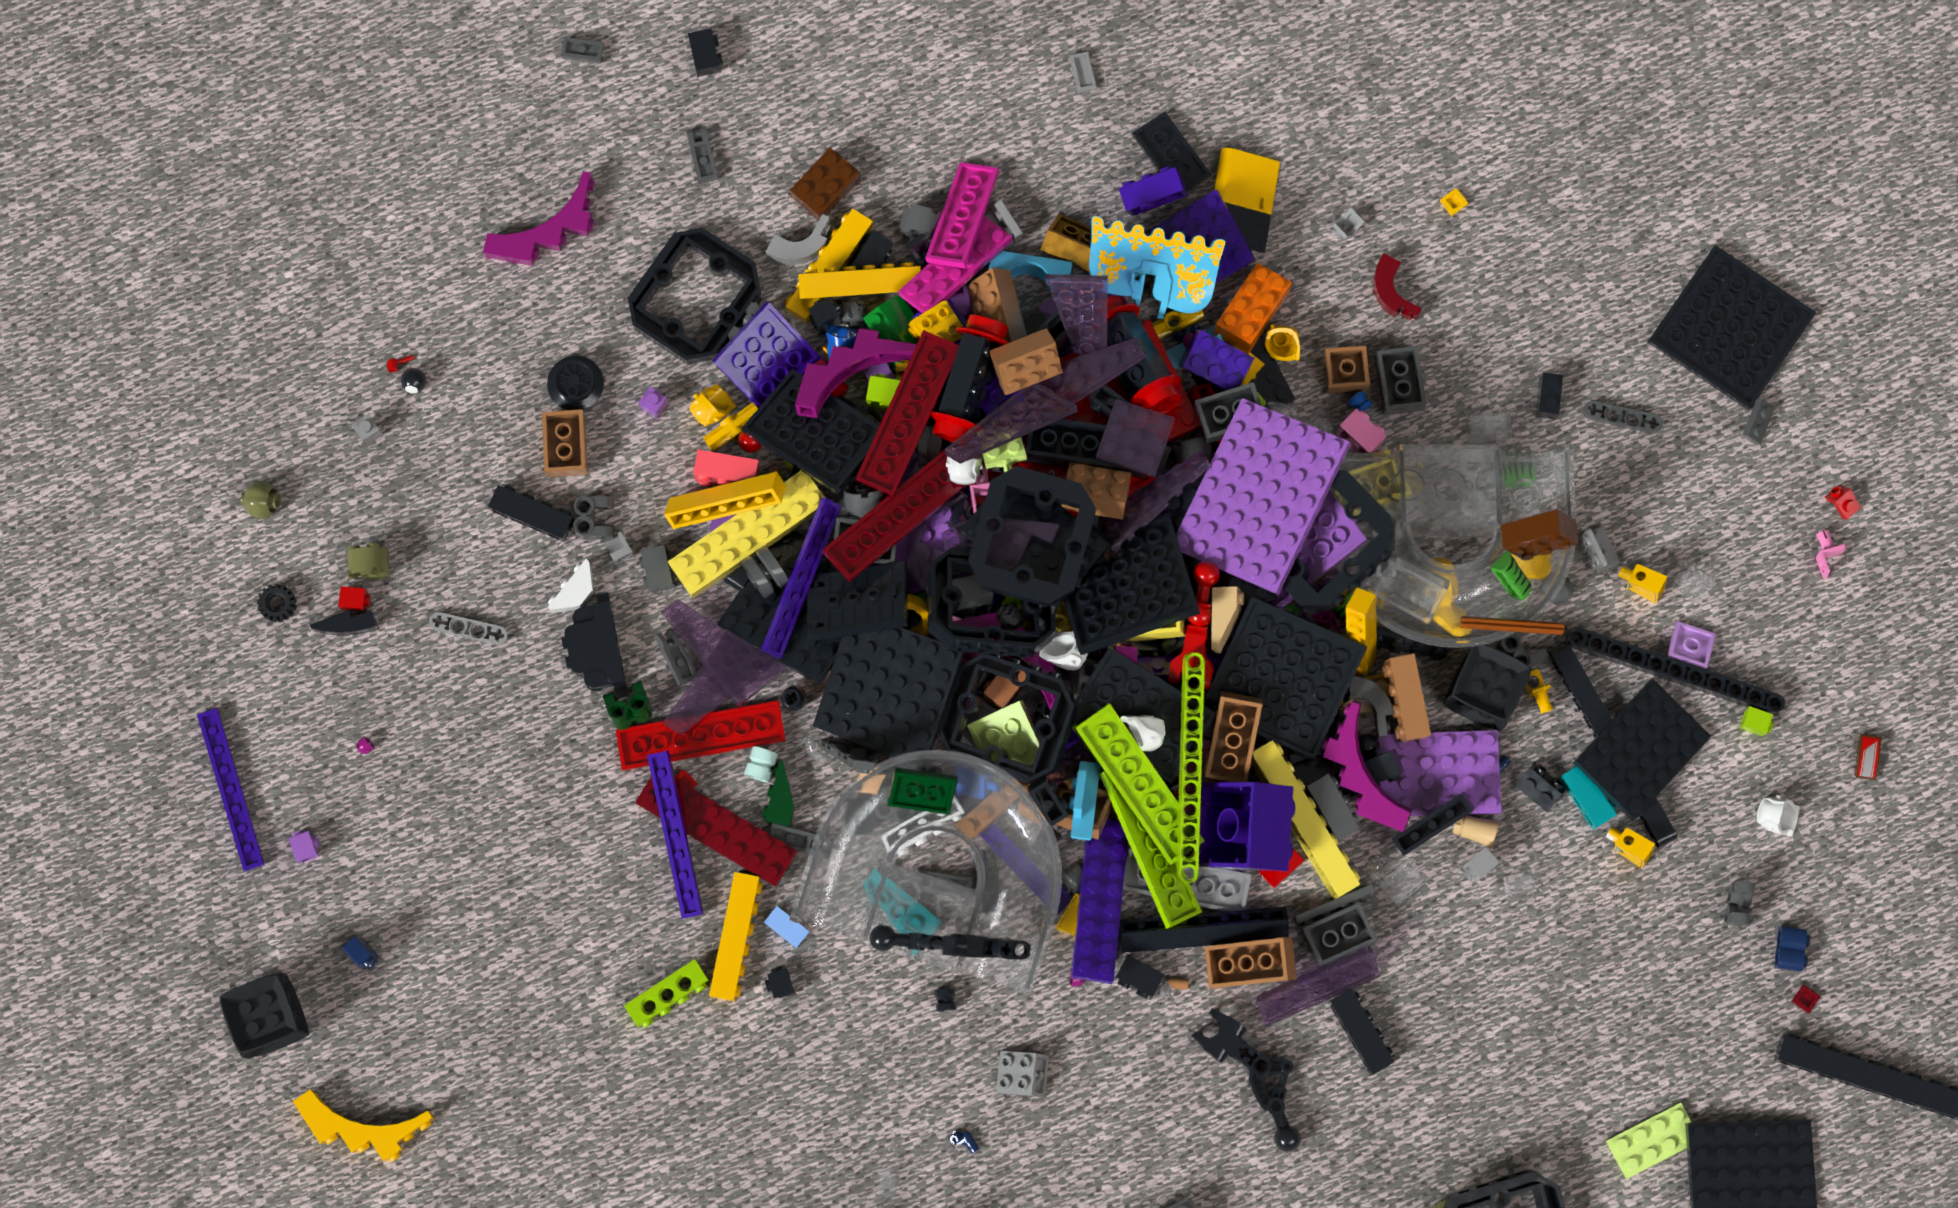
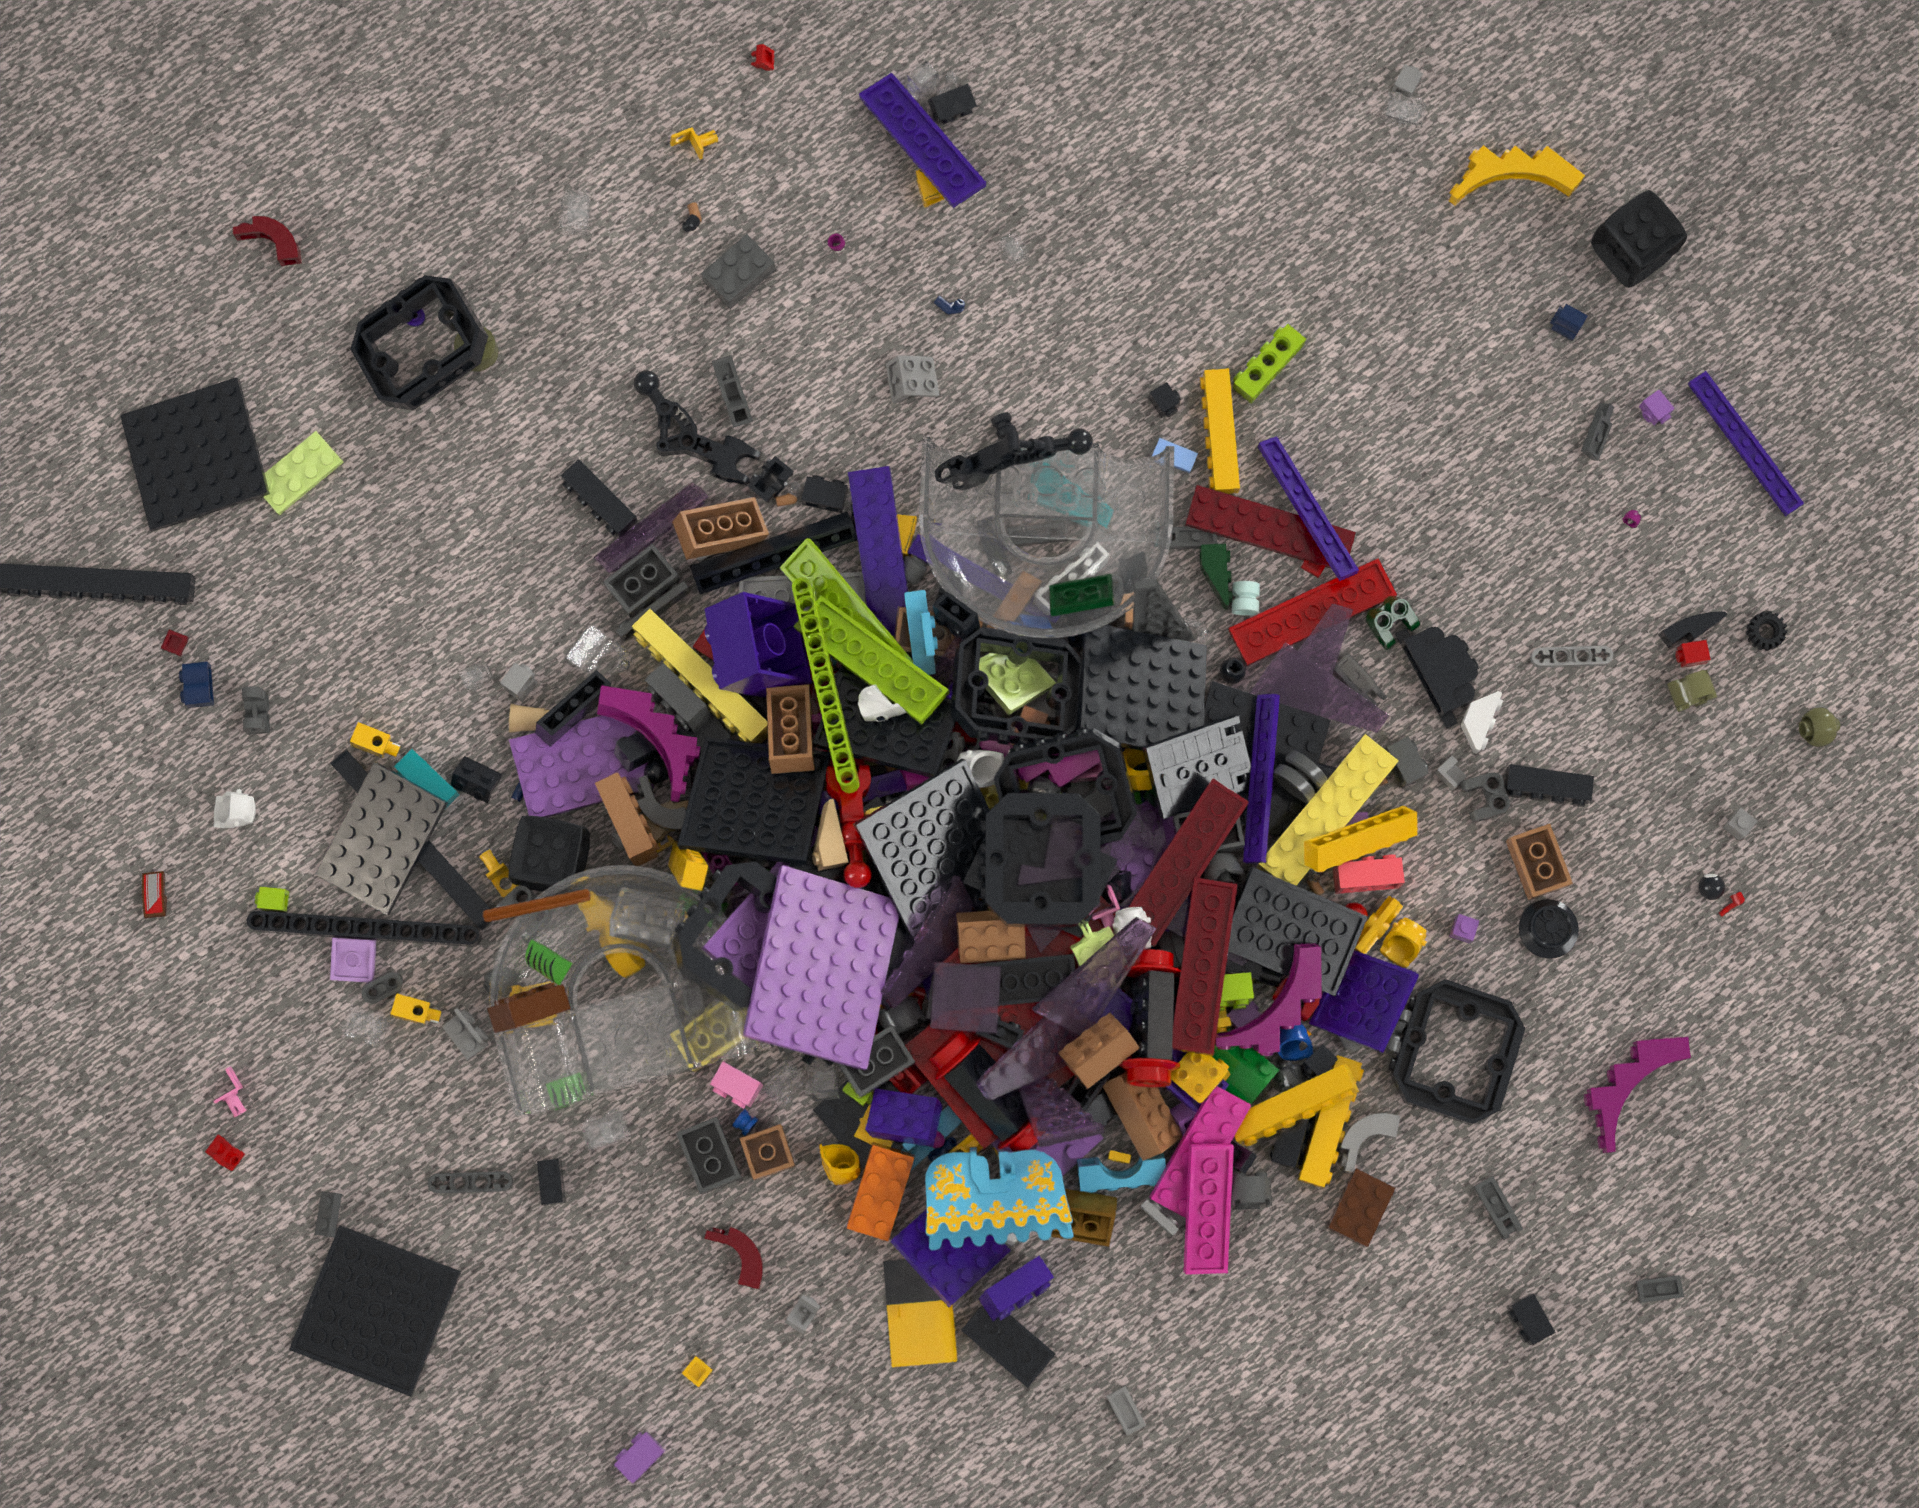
camera: 165 degrees right, 0 degrees up
(367, 839) = (1598, 432): none -> dark grey hinge
(1028, 284) = (1119, 1157): none -> yellow tile
(1189, 1004) = (771, 480): none -> black cylinder
(1204, 1104) = (732, 391): none -> dark grey arch
(1522, 142) = (639, 1457): none -> medium lavender brick
(1668, 614) = (382, 986): none -> dark grey plate

